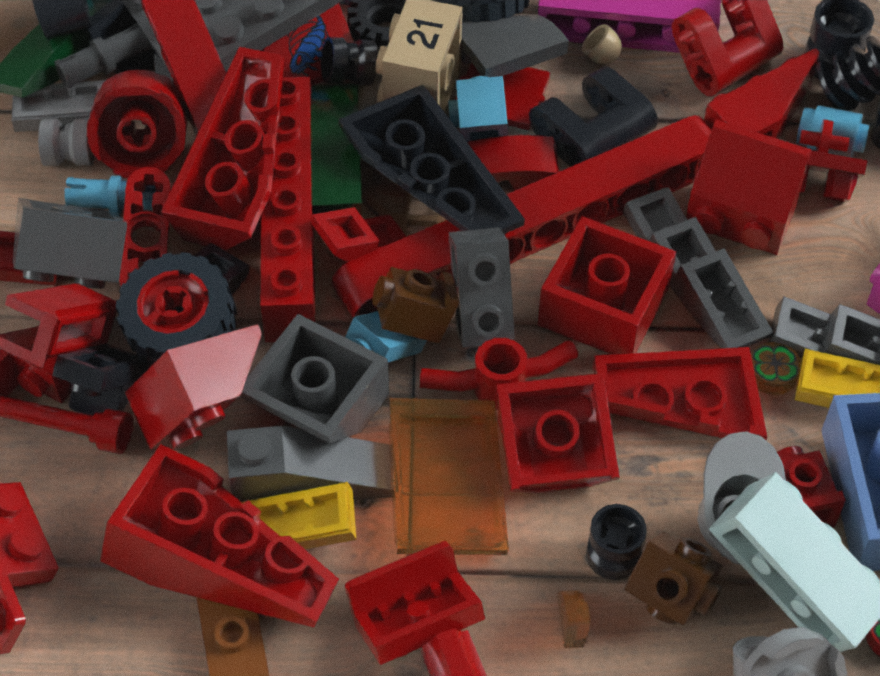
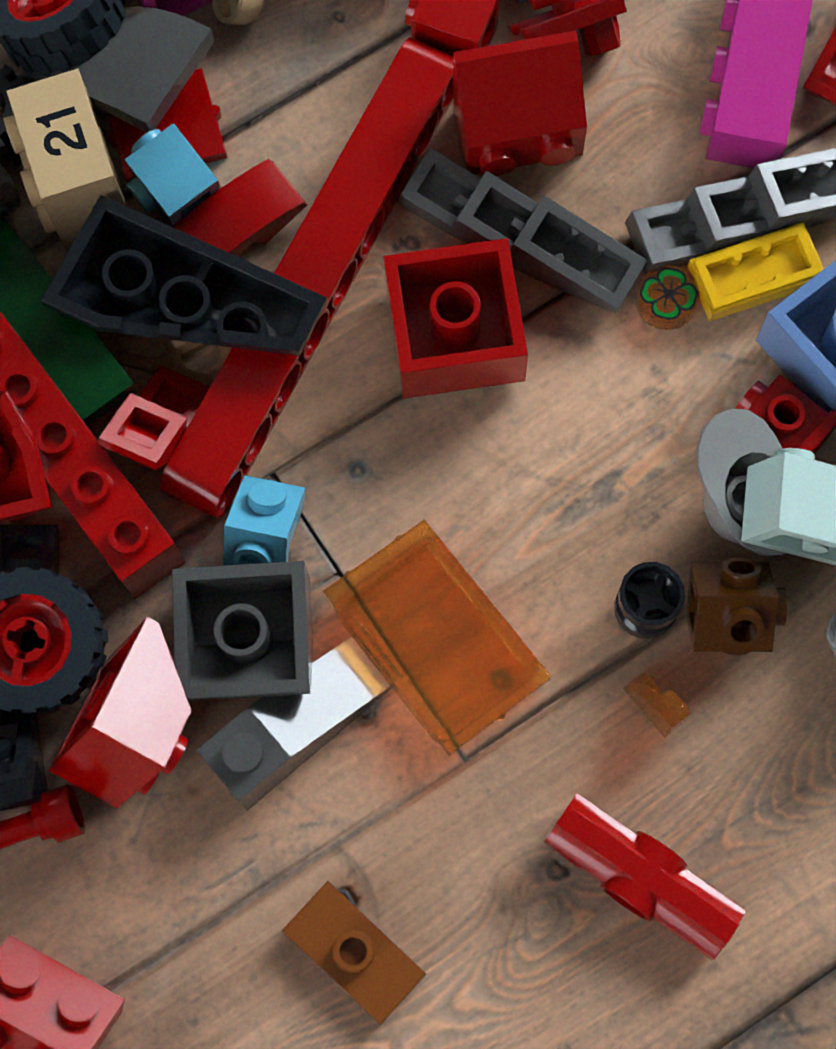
camera: 30 degrees left, 20 degrees up
(201, 541) = (256, 876): red wedge -> none
(312, 515) = (326, 785): yellow plate -> none
(412, 602) = (505, 800): red bracket -> none
(416, 303) = (280, 469): reddish brown brick -> none
(483, 285) = (334, 405): dark grey brick -> none
(498, 363) = (403, 462): red piece -> none
(556, 433) = (514, 519): red slope -> none
(621, 118) = (328, 91): black connector -> none
(686, 389) = (602, 382): red wing -> none

